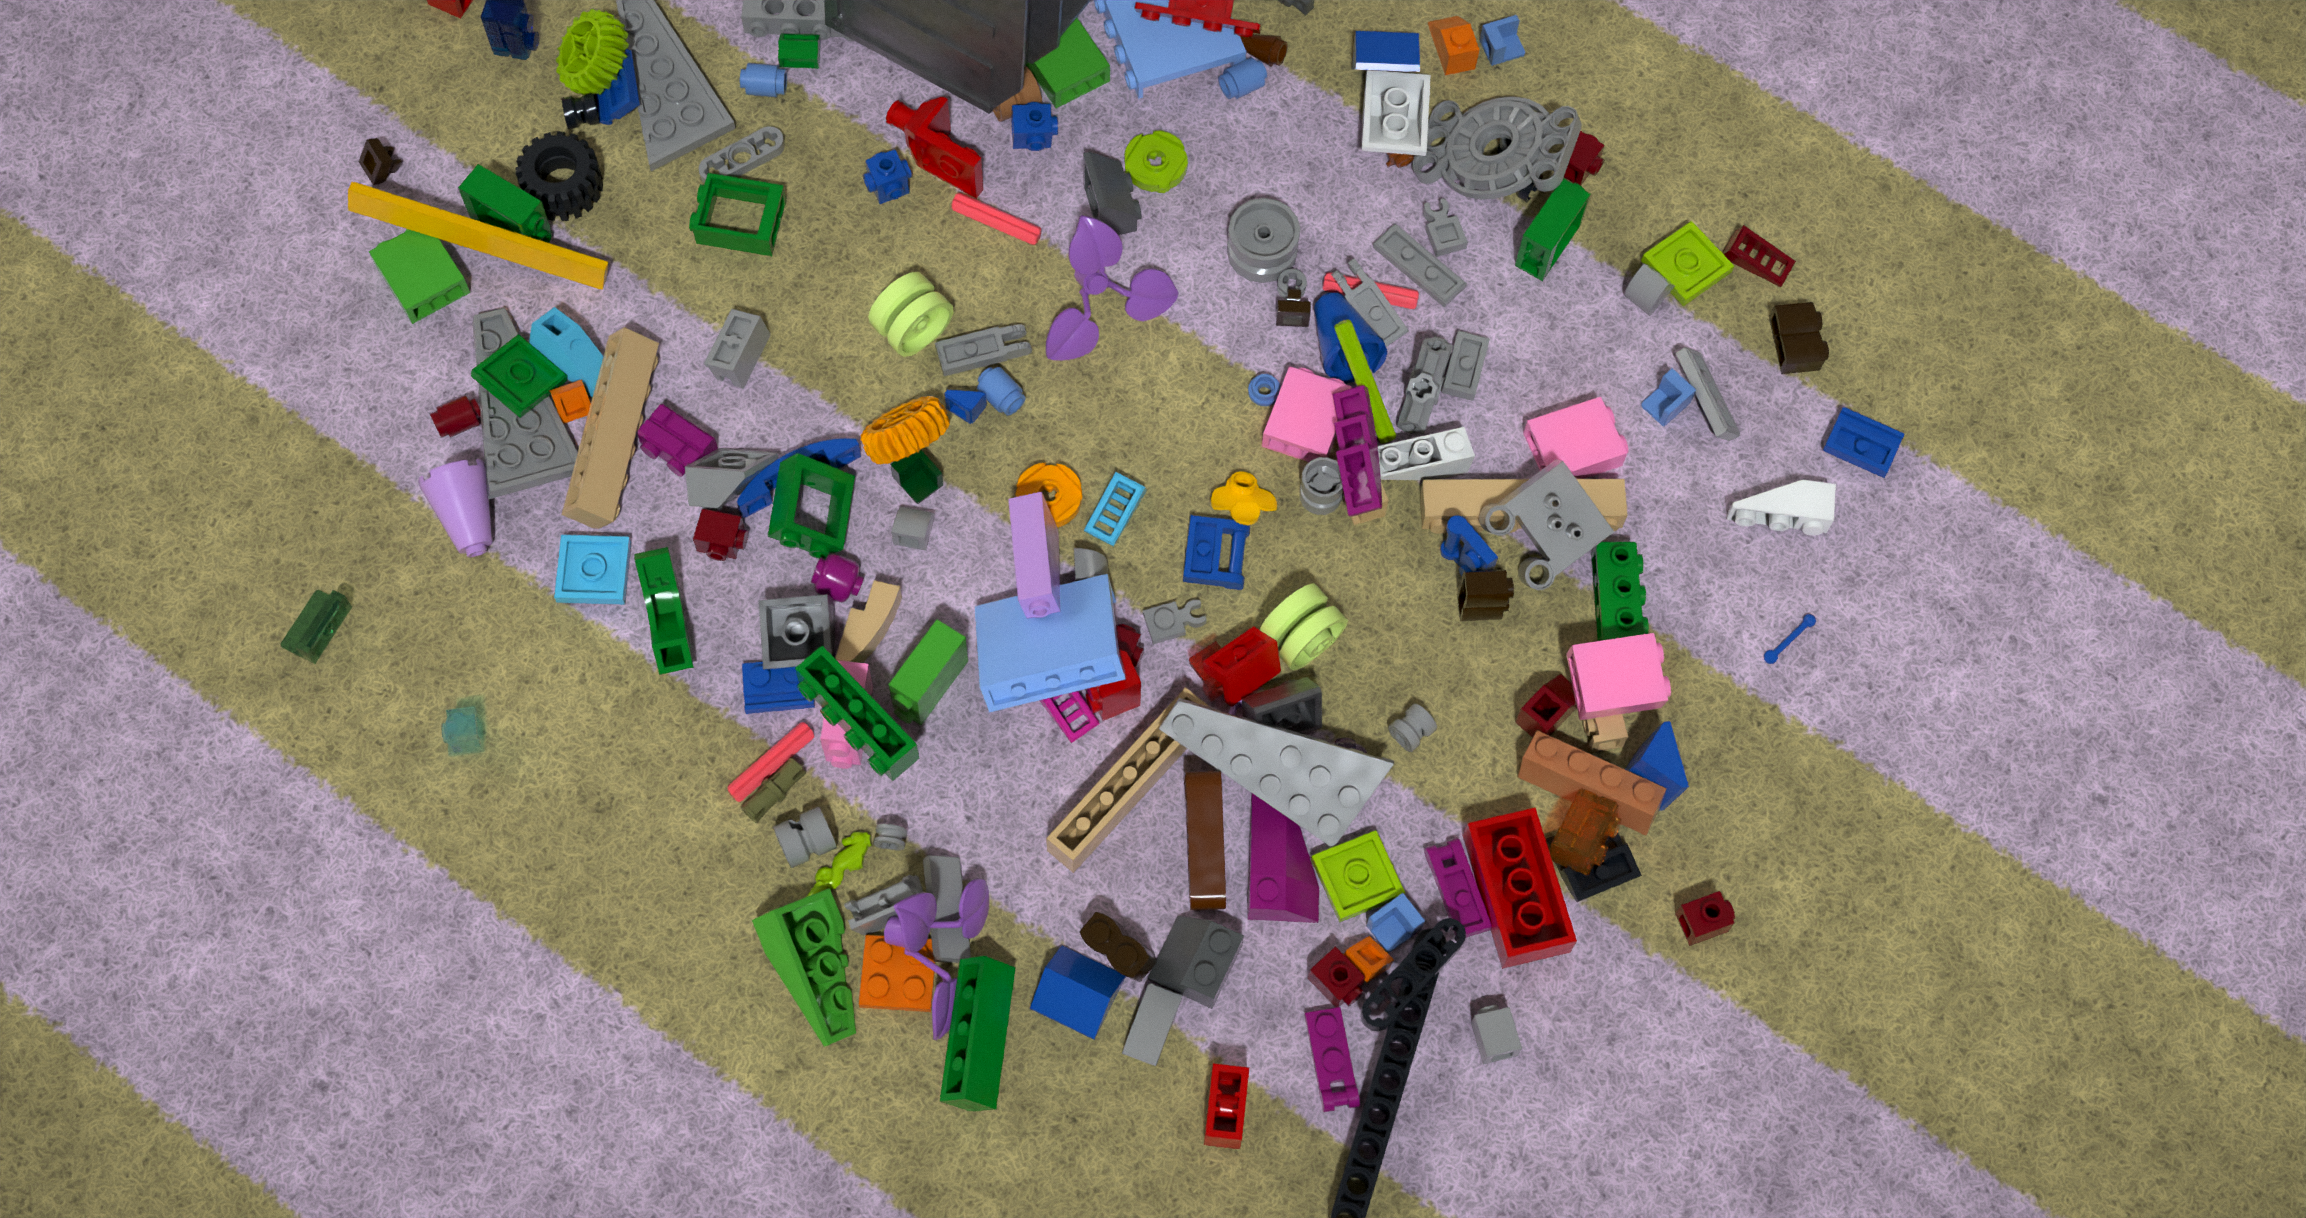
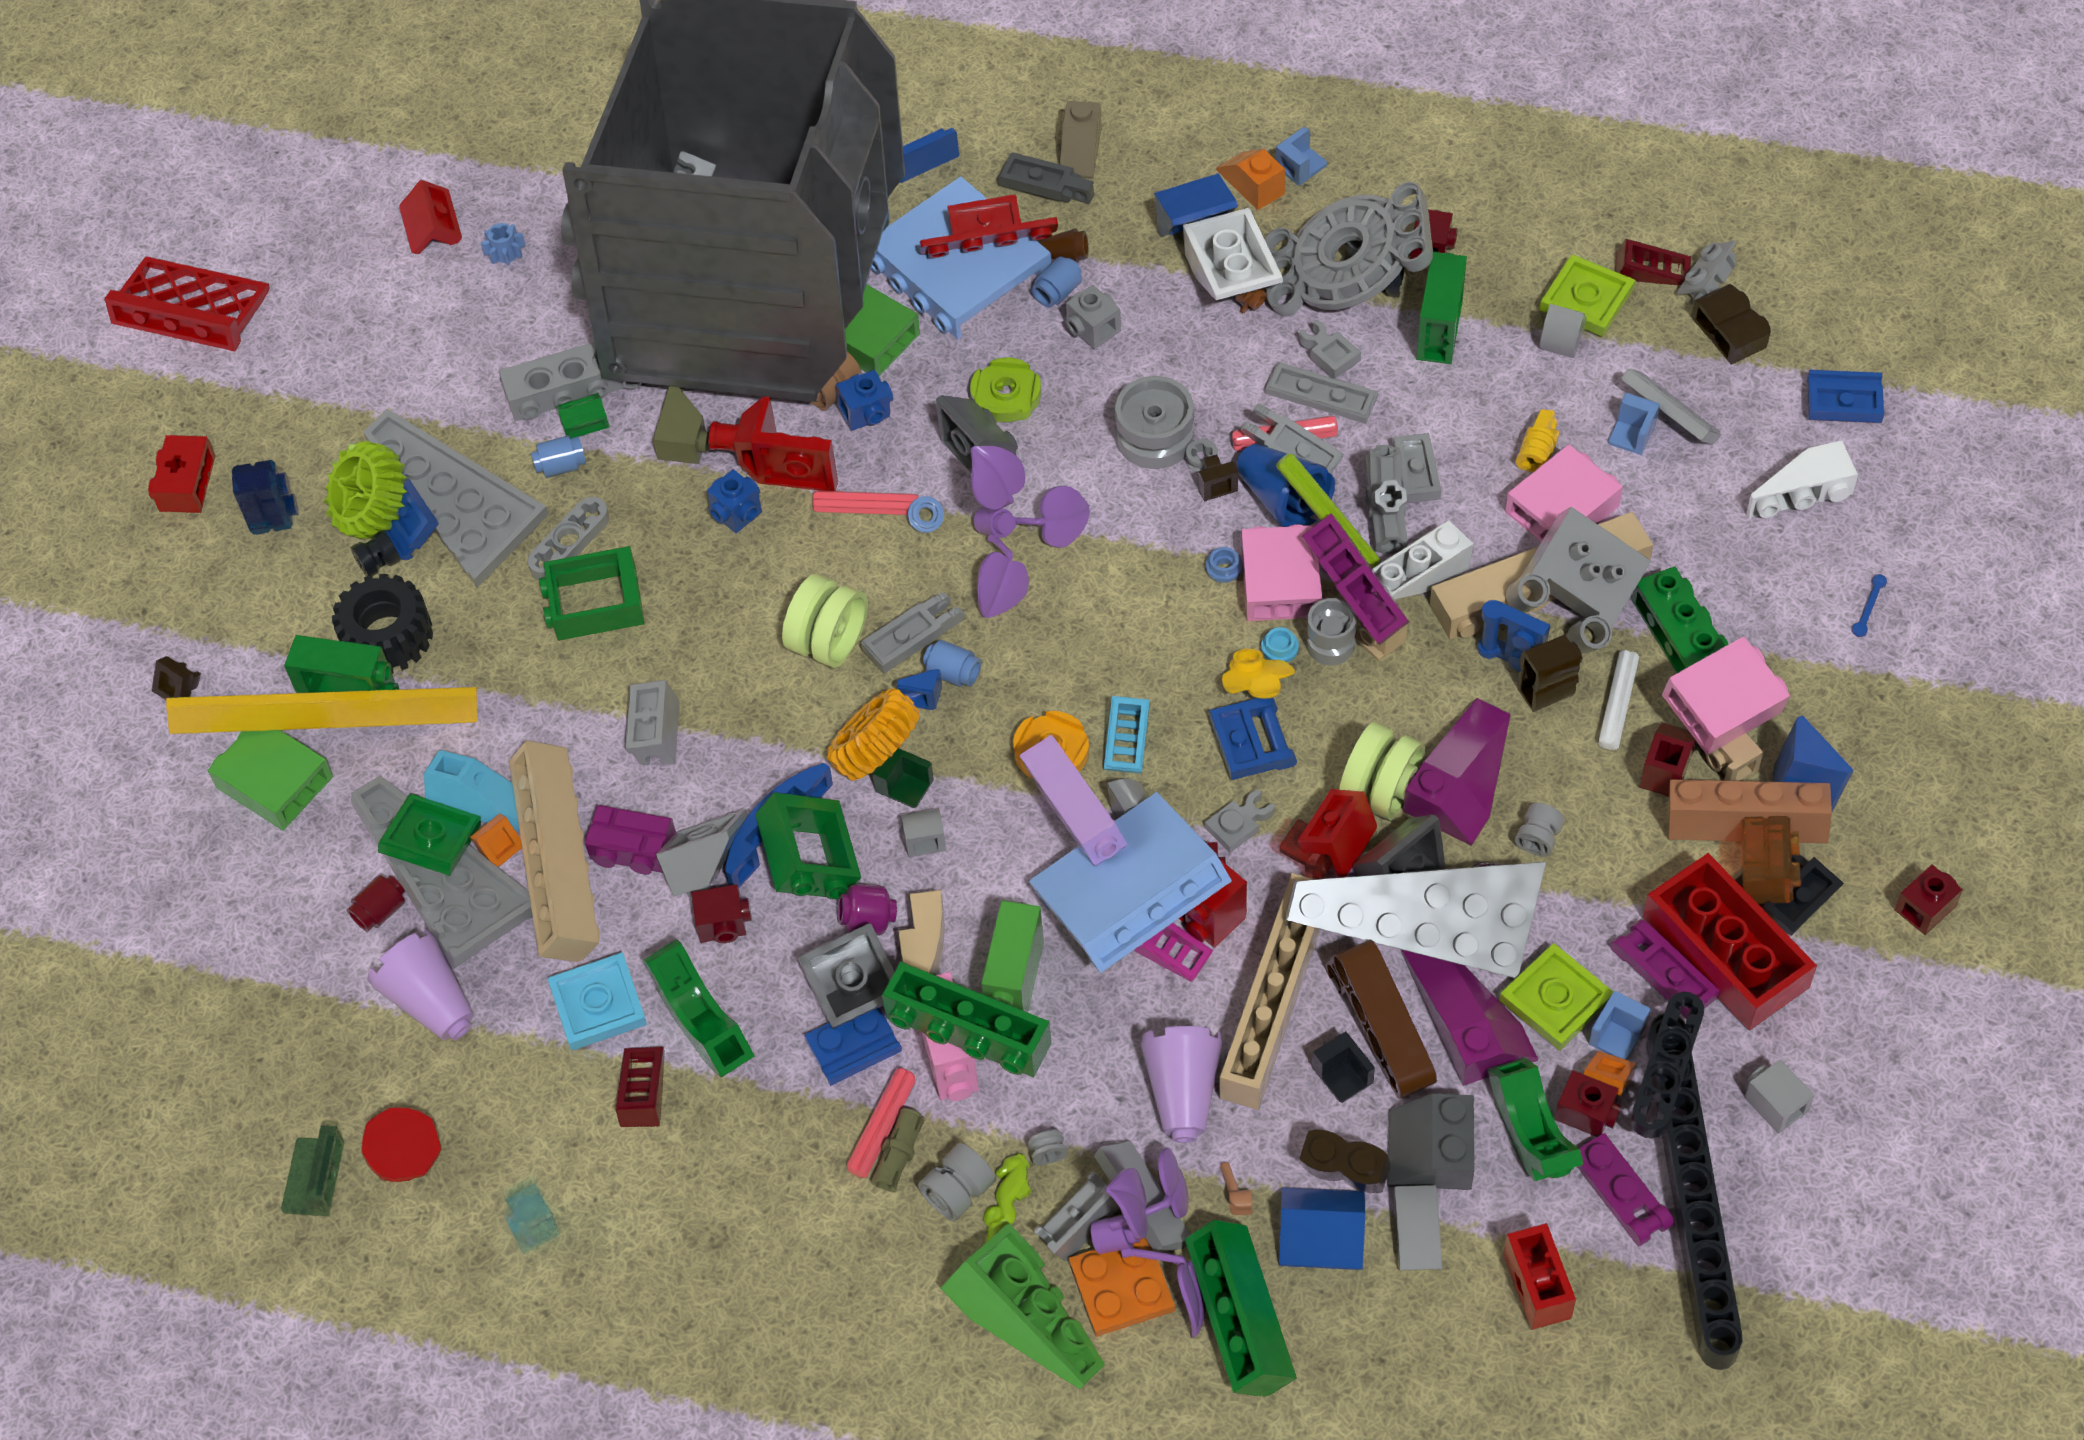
camera: 15 degrees left, 10 degrees down
(389, 629) = (400, 1144): none -> red hat
(593, 675) = (641, 1110): none -> dark red slope
(870, 94) = (680, 430): none -> olive slope
(1020, 825) = (1182, 1077): none -> lavender cone
(1023, 943) = (1239, 1201): none -> nougat hand
(1032, 256) = (925, 503): none -> medium blue plate
(1155, 866) = (1343, 1067): none -> black panel
(1257, 122) = (1093, 316): none -> light grey brick
(1277, 480) = (1280, 644): none -> medium azure plate
(1283, 975) = (1530, 1122): none -> green arch
(1370, 654) = (1462, 773): none -> magenta wedge
(1535, 639) = (1618, 700): none -> white axle
(1580, 382) = (1538, 442): none -> yellow hinge
(1812, 275) = (1714, 263): none -> light grey hinge

